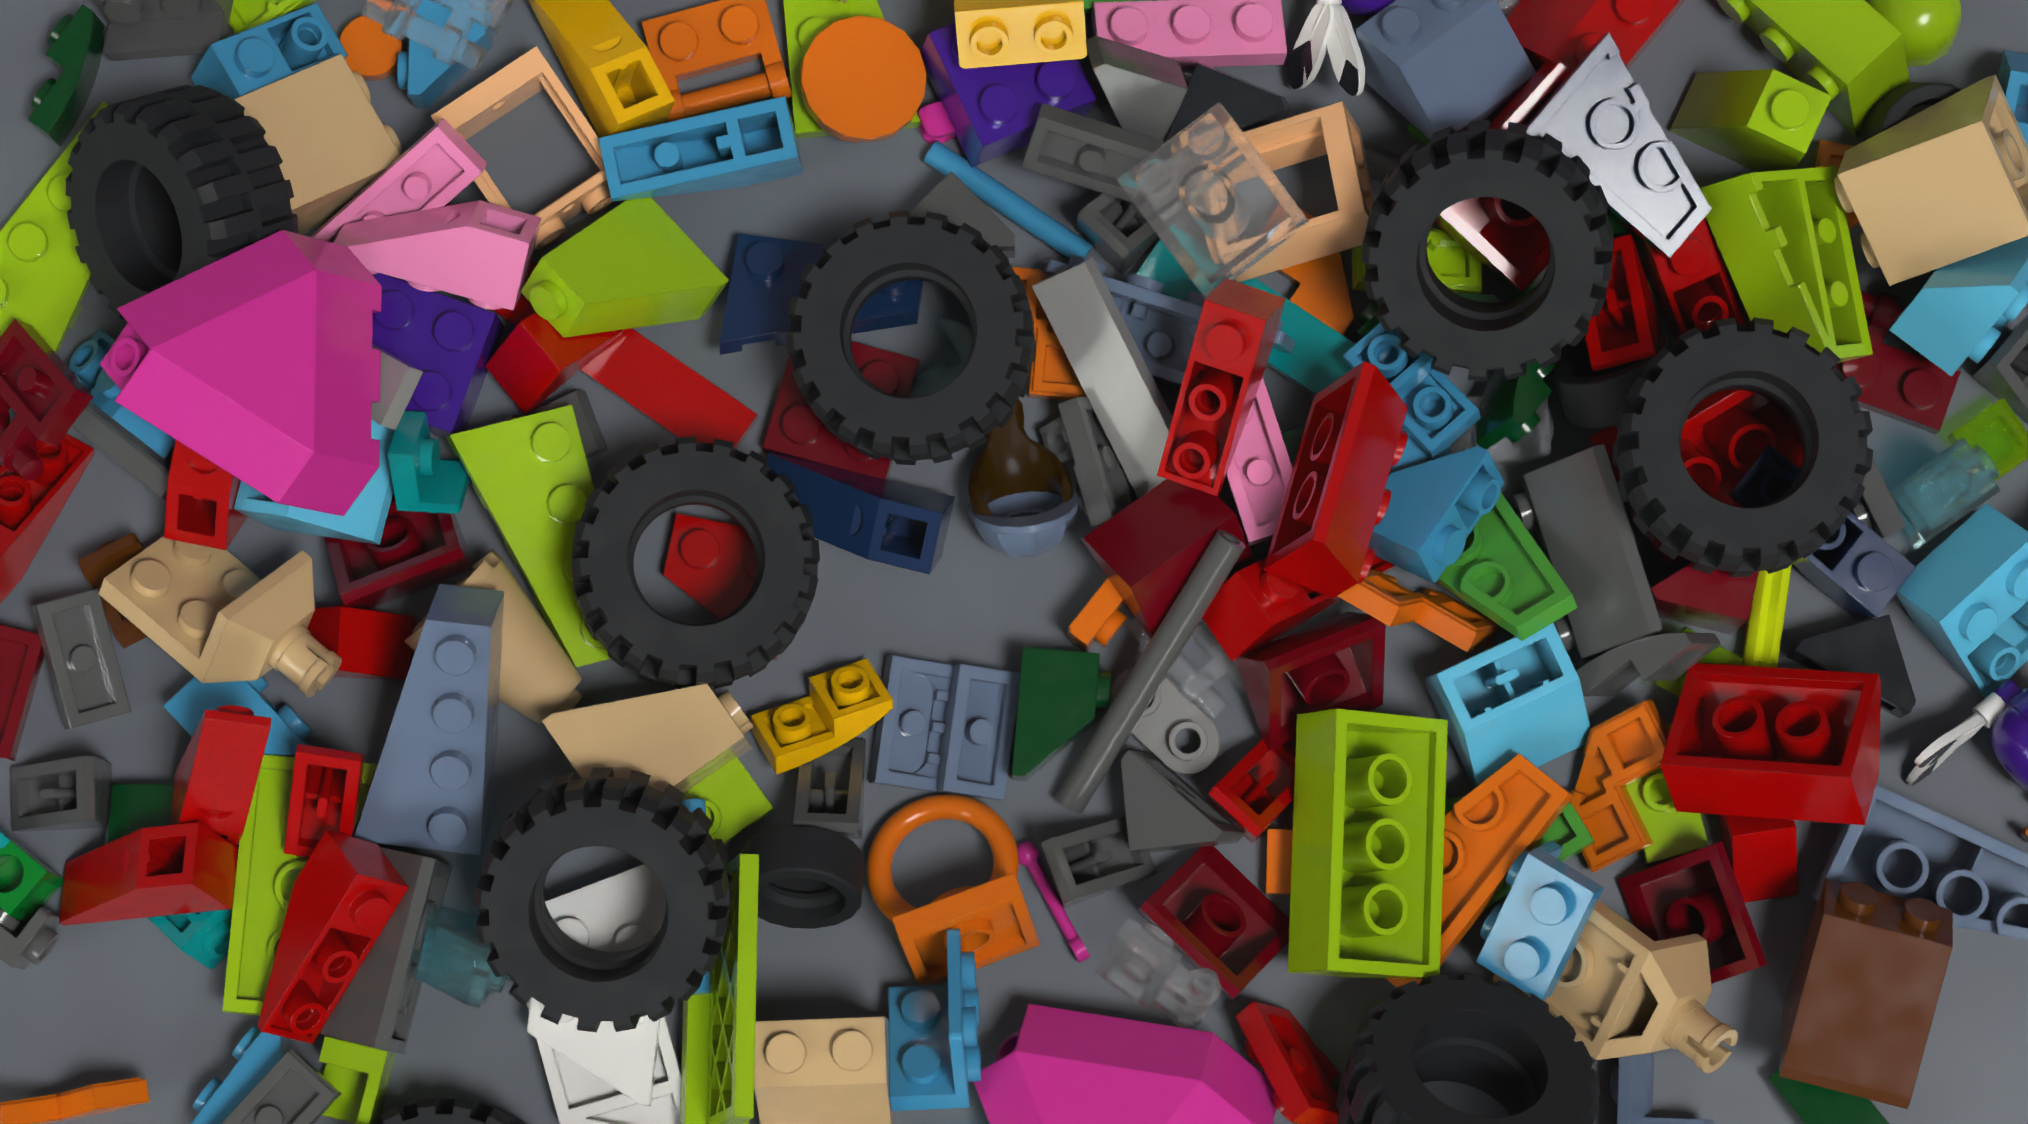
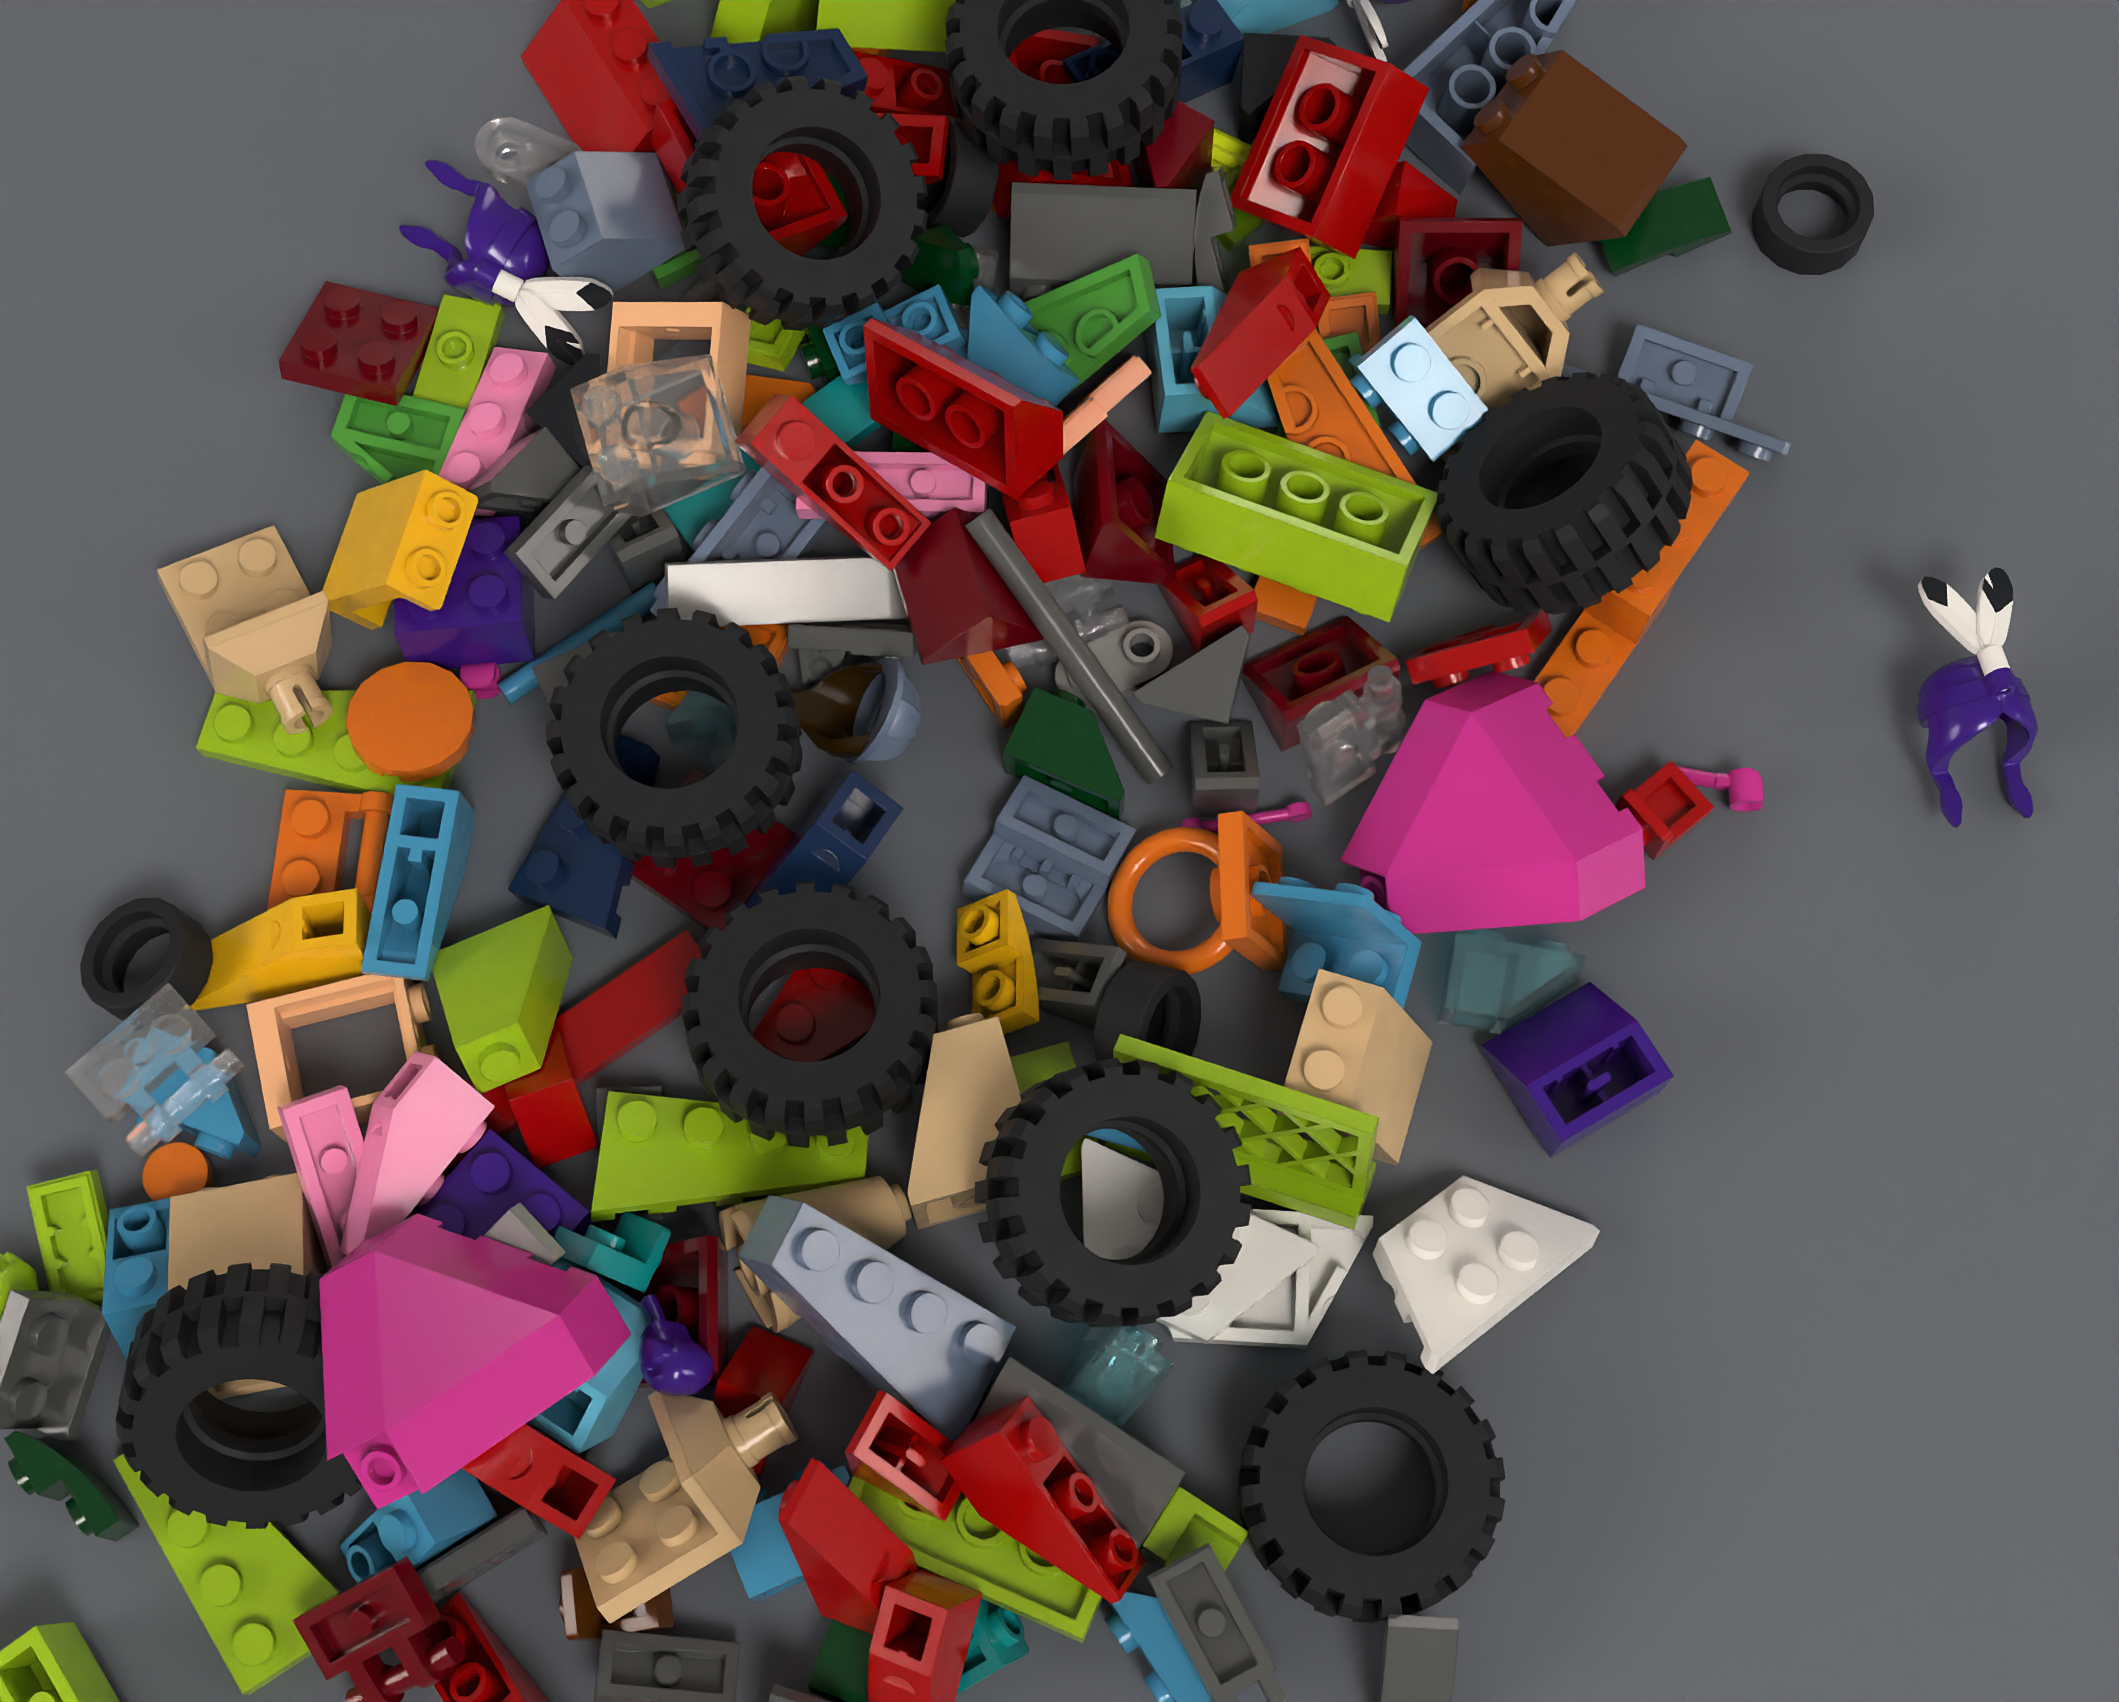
camera: 75 degrees left, 10 degrees down
(341, 555) = (669, 1356): none -> dark purple piece
(1541, 742) = (1258, 328): none -> red slope

